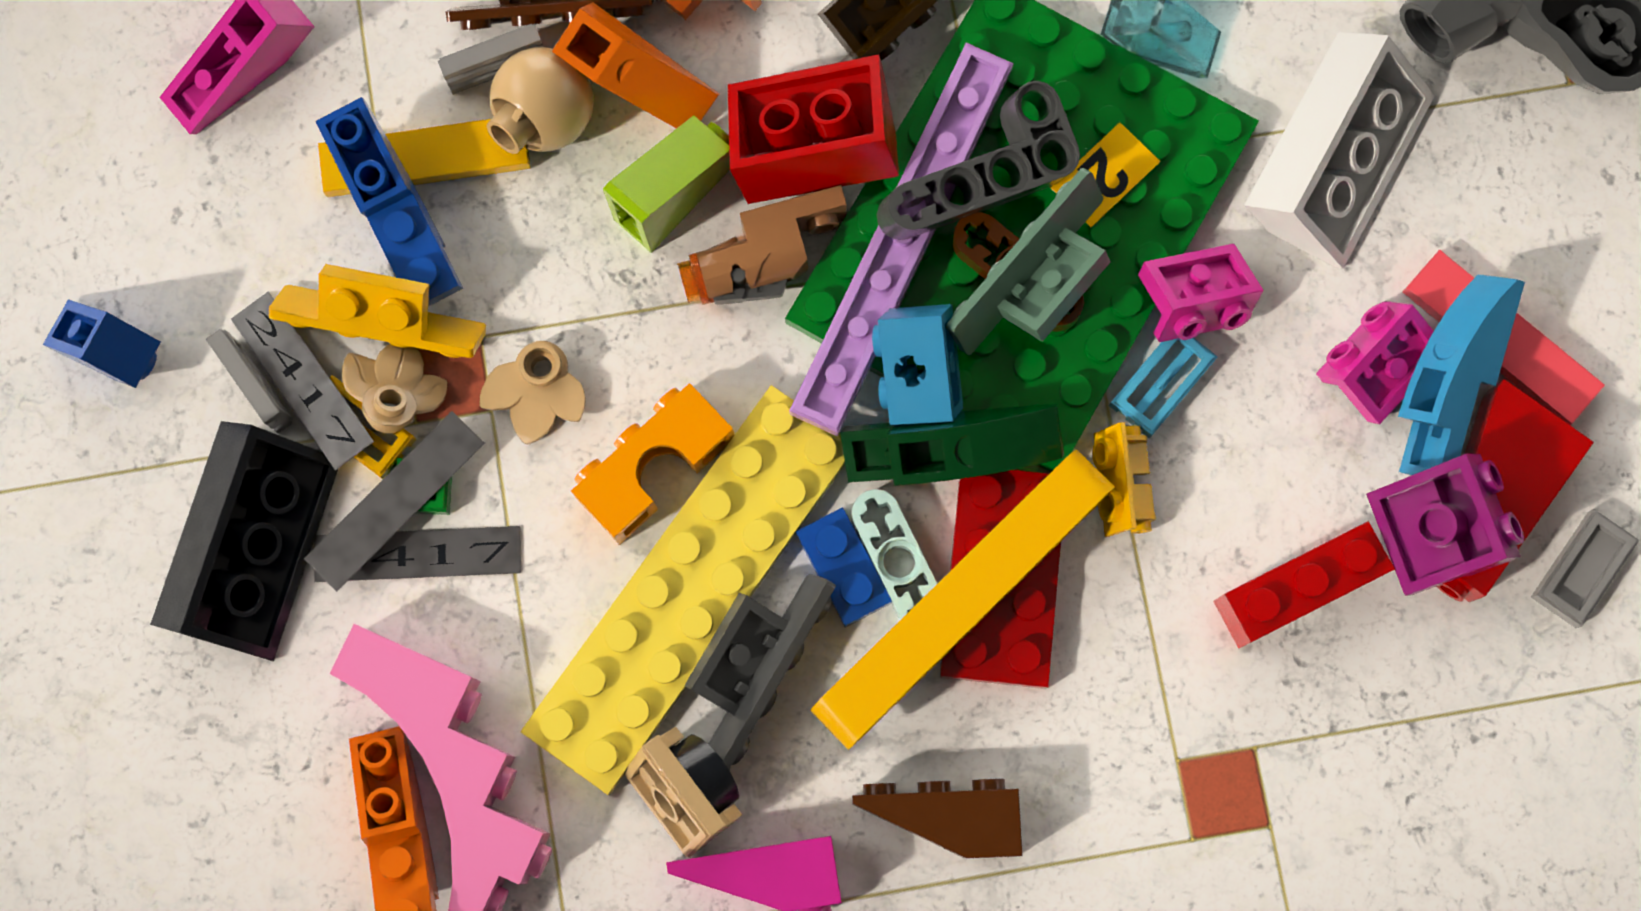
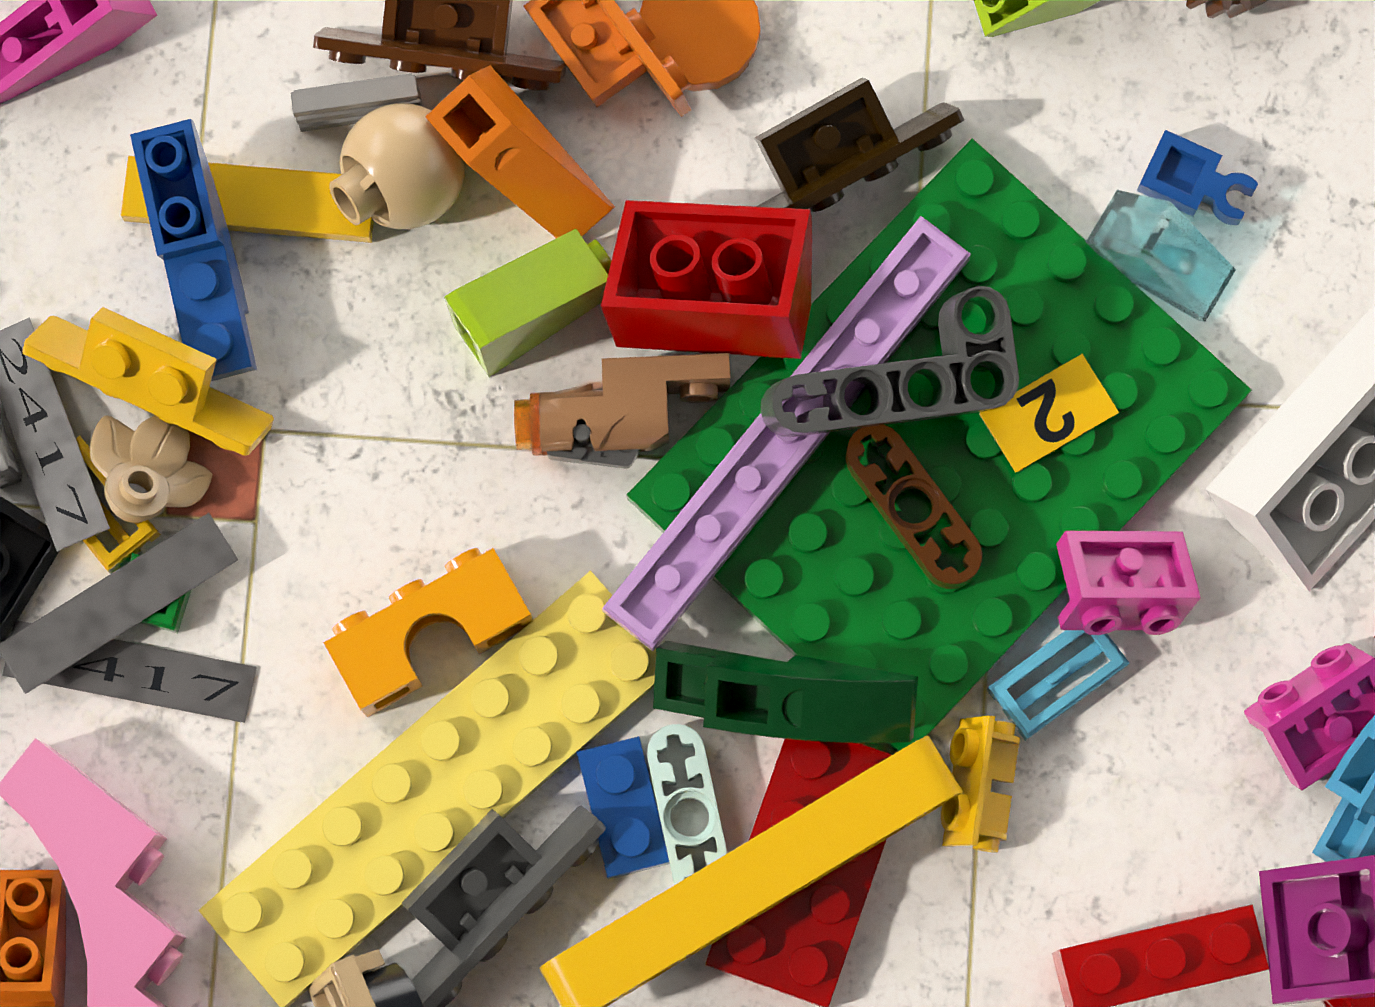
camera: 15 degrees right, 0 degrees up
(531, 398) = (307, 520): tan plate -> none
(903, 391) = (787, 565): dark azure brick -> none
(1040, 273) = (935, 517): sand green bracket -> none

